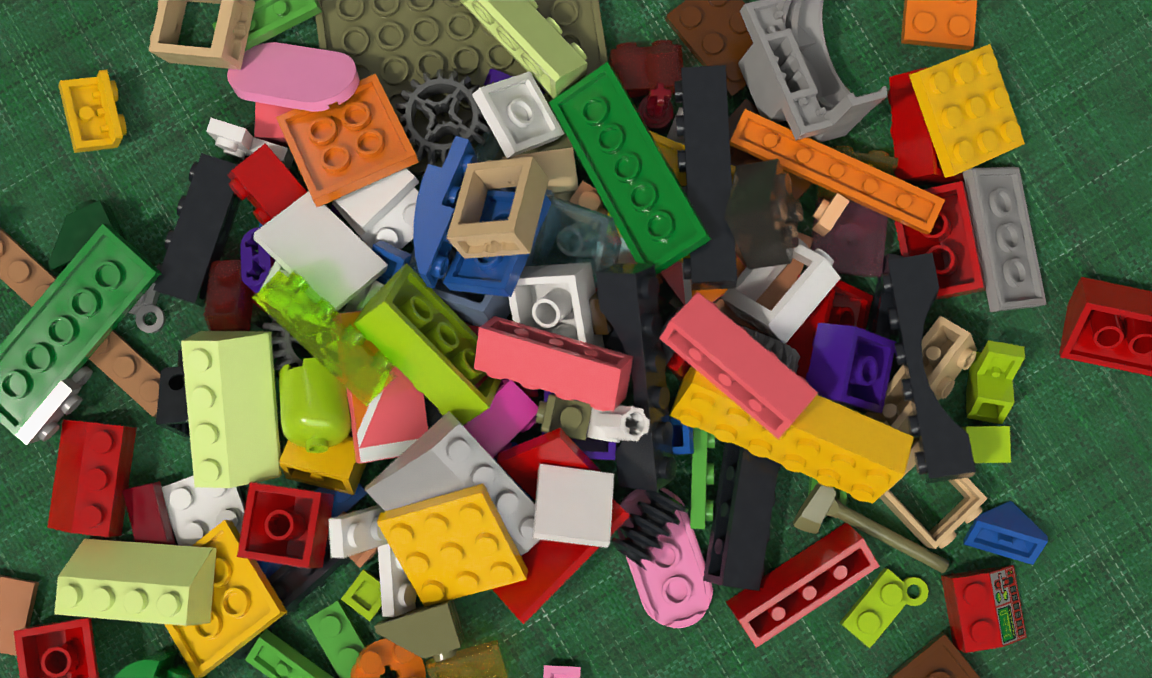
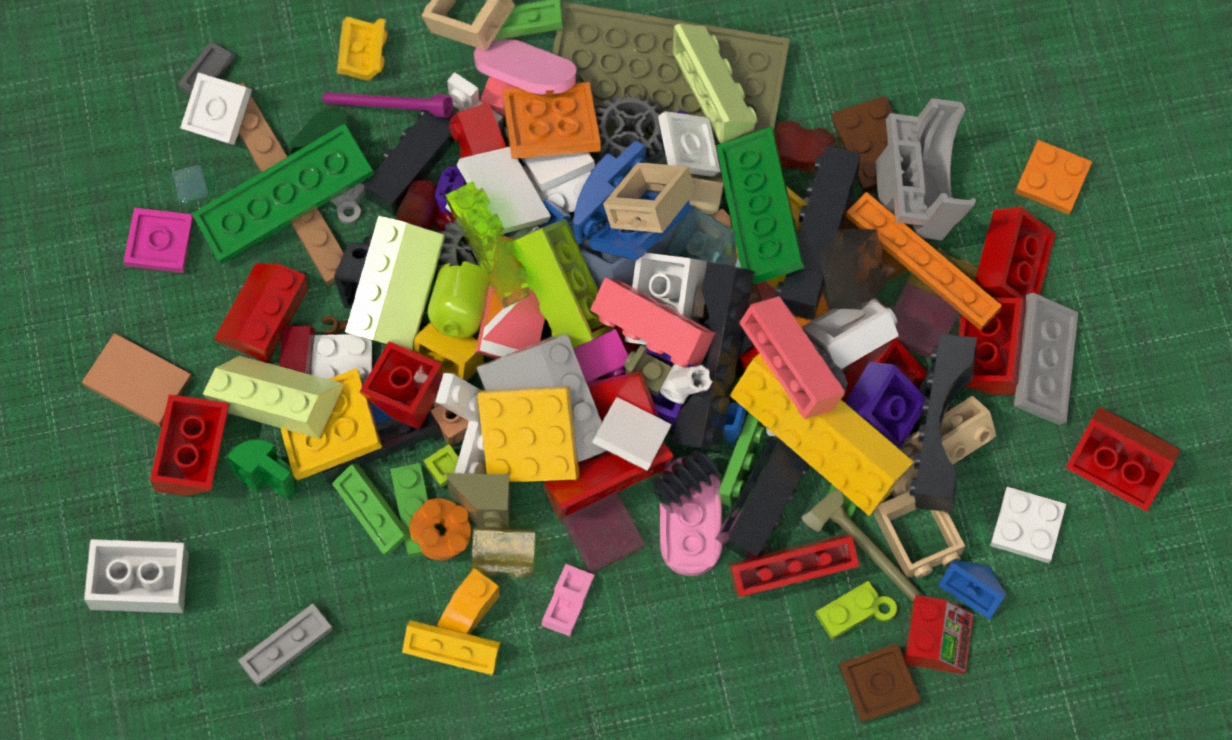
camera: 25 degrees right, 15 degrees down
(61, 401) = (260, 246): light grey hinge -> none
(185, 466) = (338, 326): none -> reddish brown hand
(207, 162) = (439, 105): none -> magenta piece
(576, 617) = (603, 533): none -> clear pink plate
(657, 109) = (798, 175): dark red piece -> none
(828, 213) = (908, 293): light nougat plate -> none
(967, 110) = (1045, 250): yellow plate -> none
(990, 443) = (980, 508): lime panel -> none
(991, 381) = (1001, 461): lime brick -> none
(1043, 440) = (1028, 525): none -> white plate

